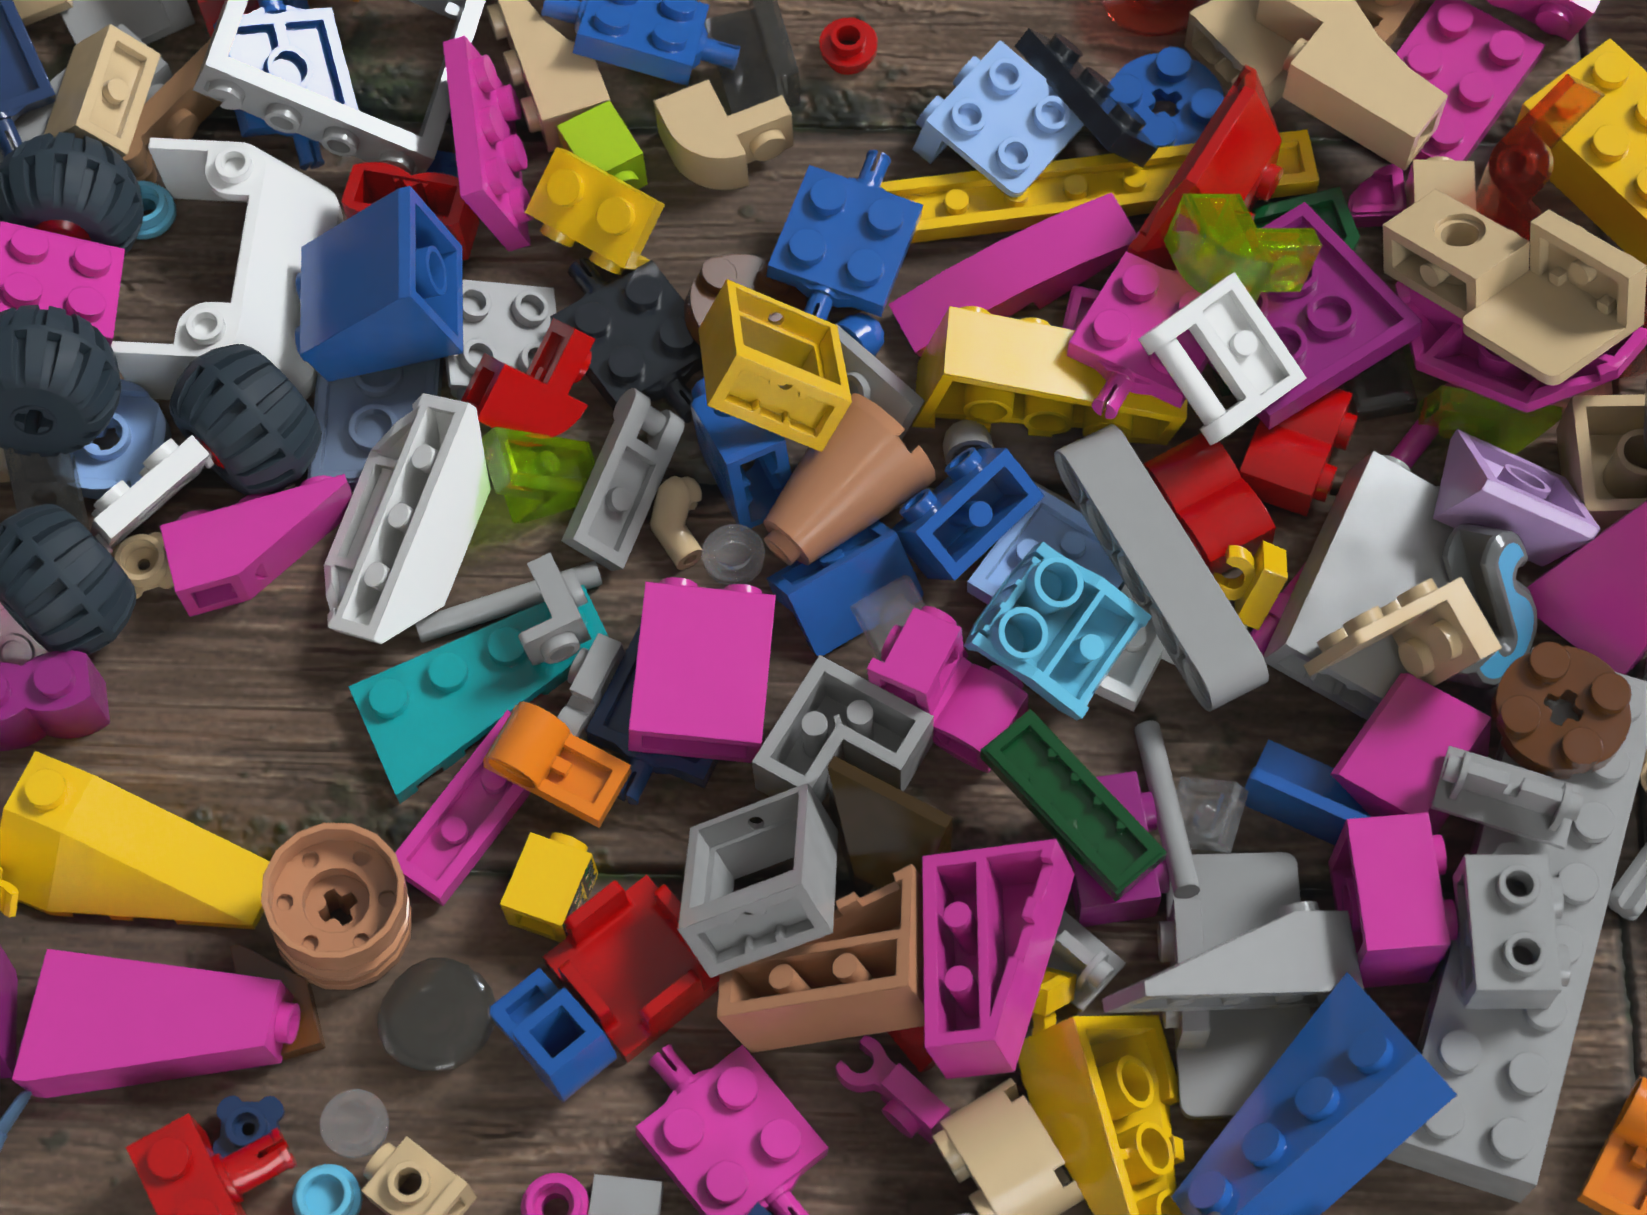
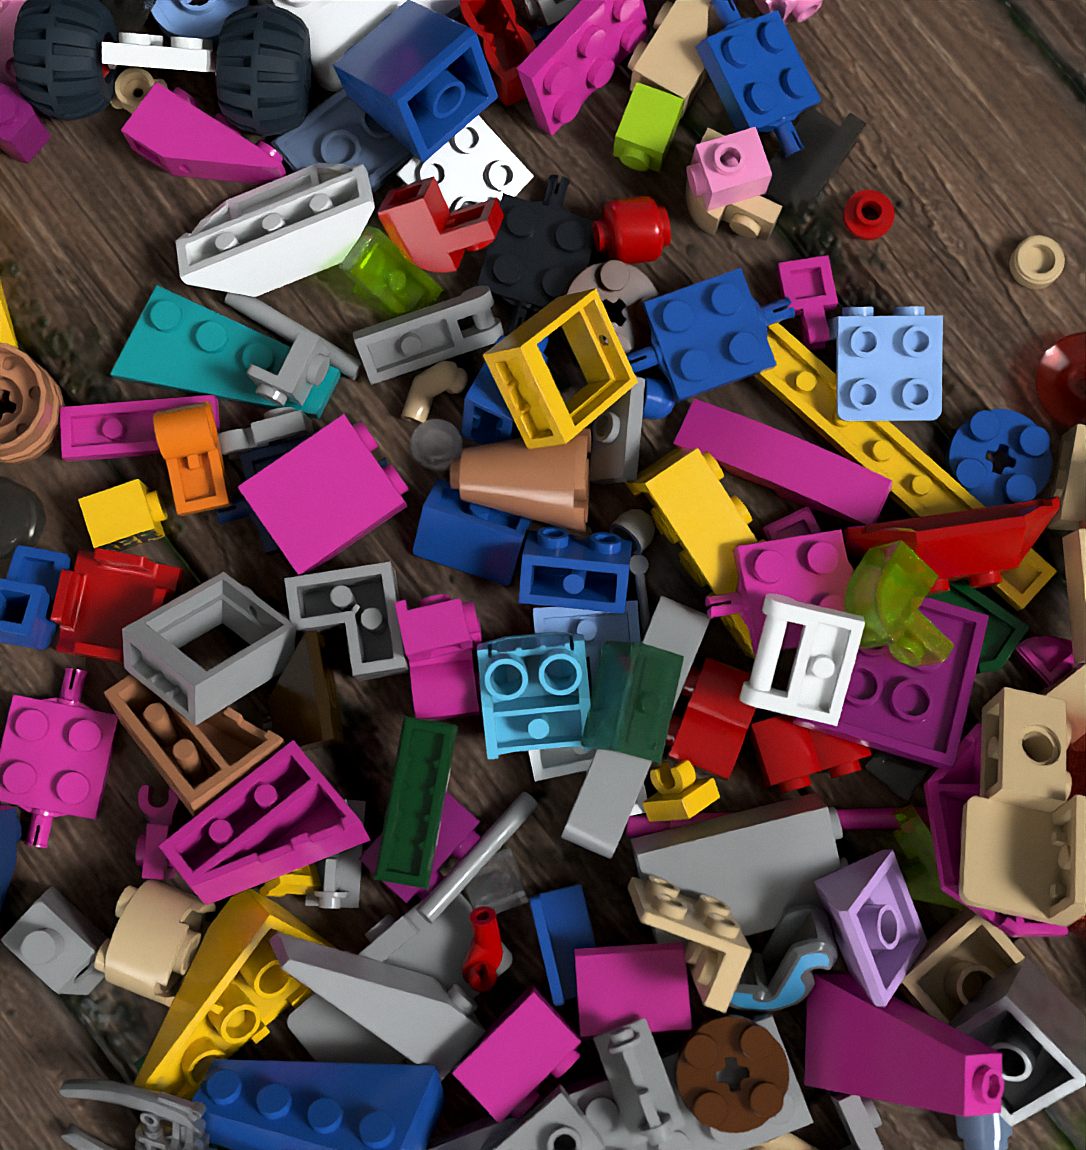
camera: 45 degrees right, 15 degrees up
(595, 210) = (595, 157): yellow bracket -> none
(687, 234) = (632, 230): none -> red head
(714, 102) = (729, 169): none -> bright pink brick
(875, 129) = (812, 292): none -> dark pink plate
(885, 609) = (473, 579): clear plate -> none
(1087, 95) = (952, 405): black plate -> none
(1134, 536) = (632, 700): none -> clear green panel
(1266, 868) = (484, 950): none -> red arm

